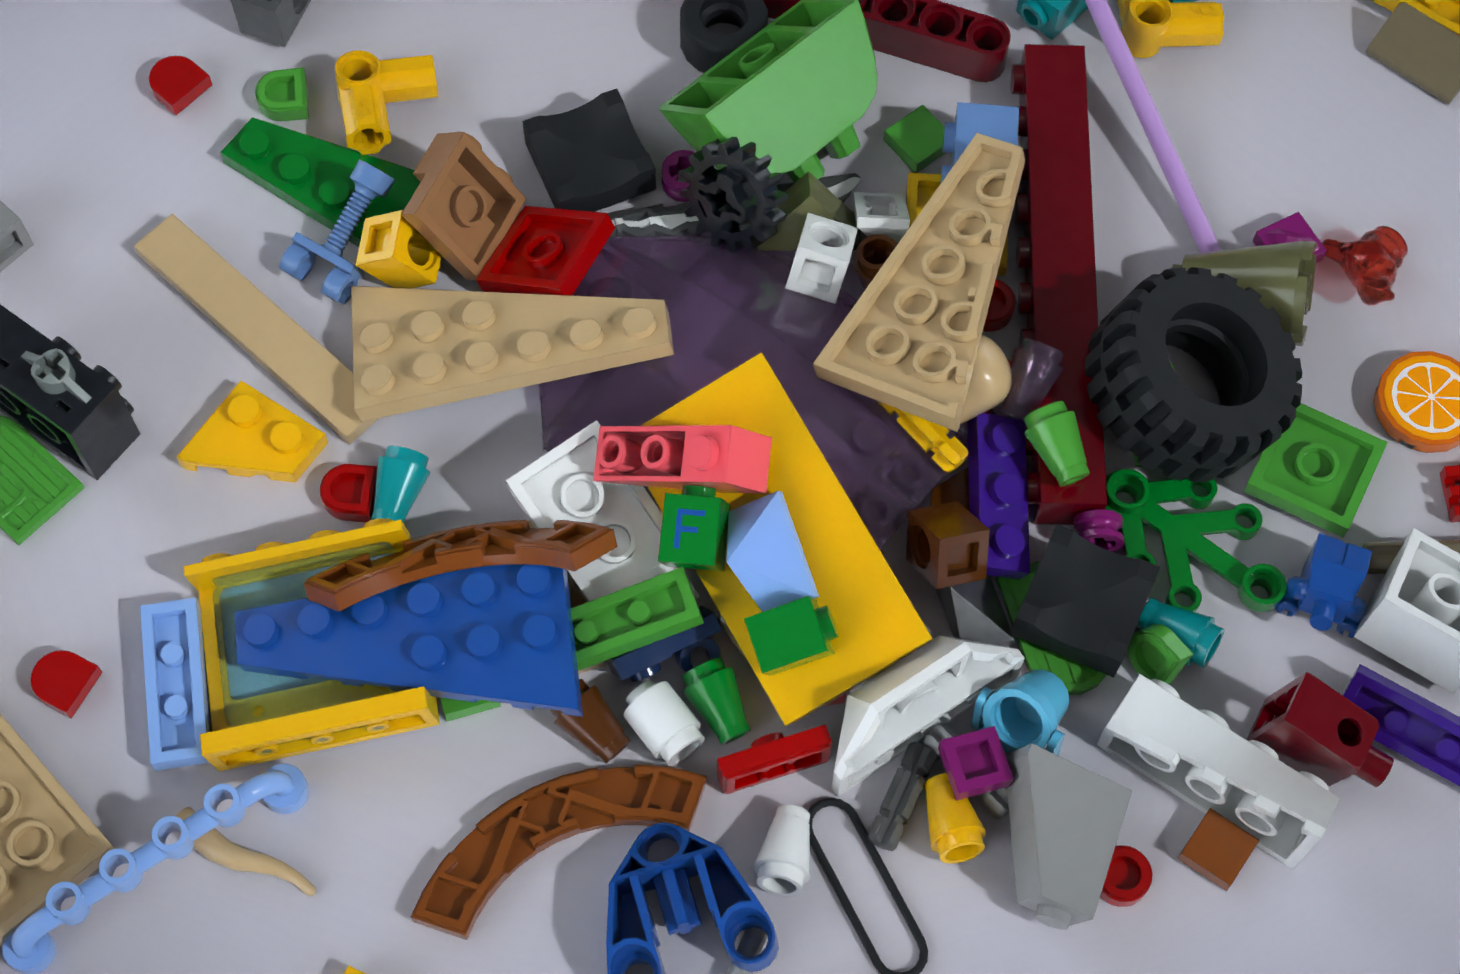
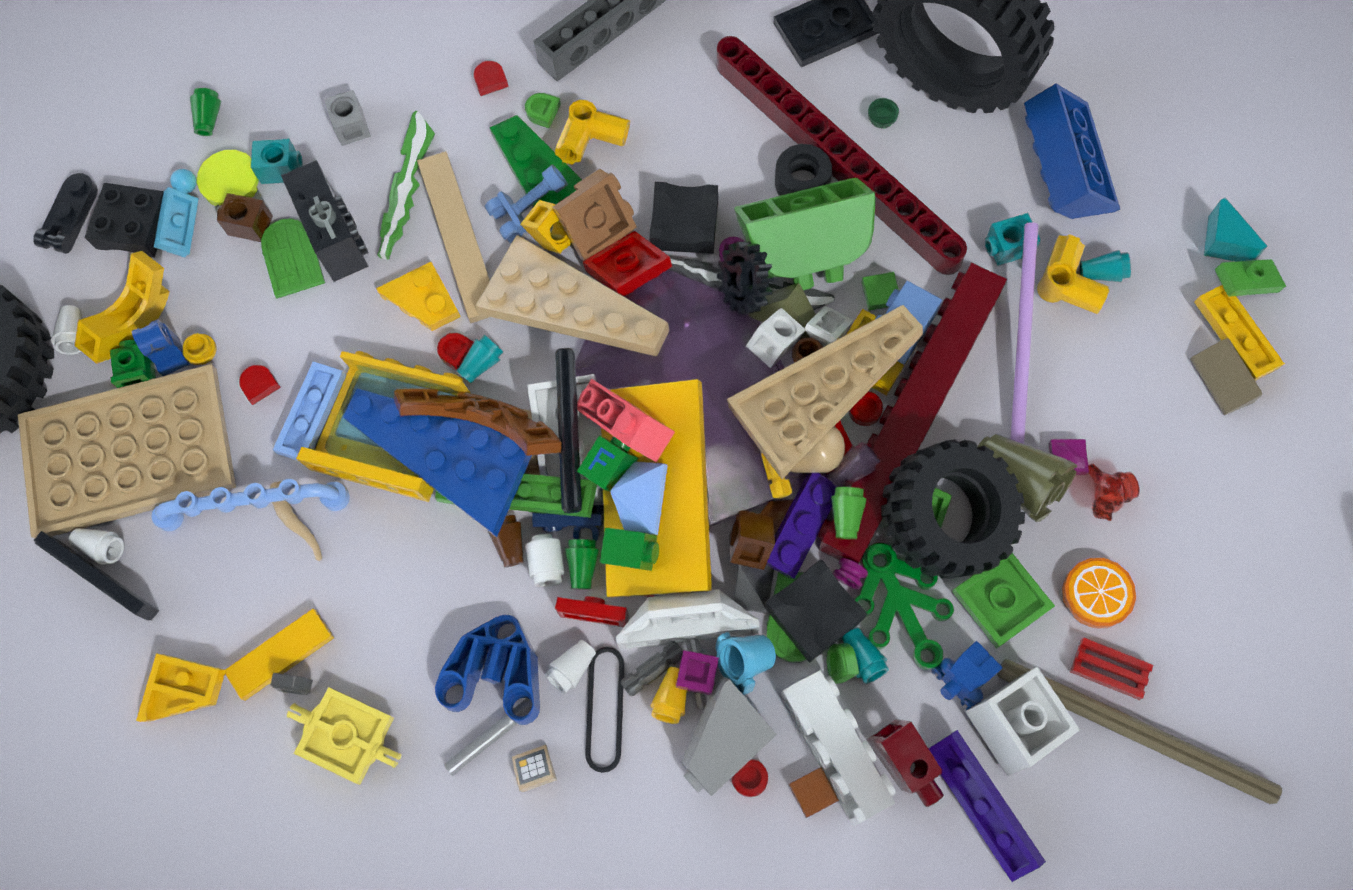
camera: 35 degrees right, 5 degrees up
(131, 292) = (404, 184): none -> bright green sword
(542, 818) = (456, 580): dark orange tile -> none
(608, 512) = (568, 430): none -> black axle

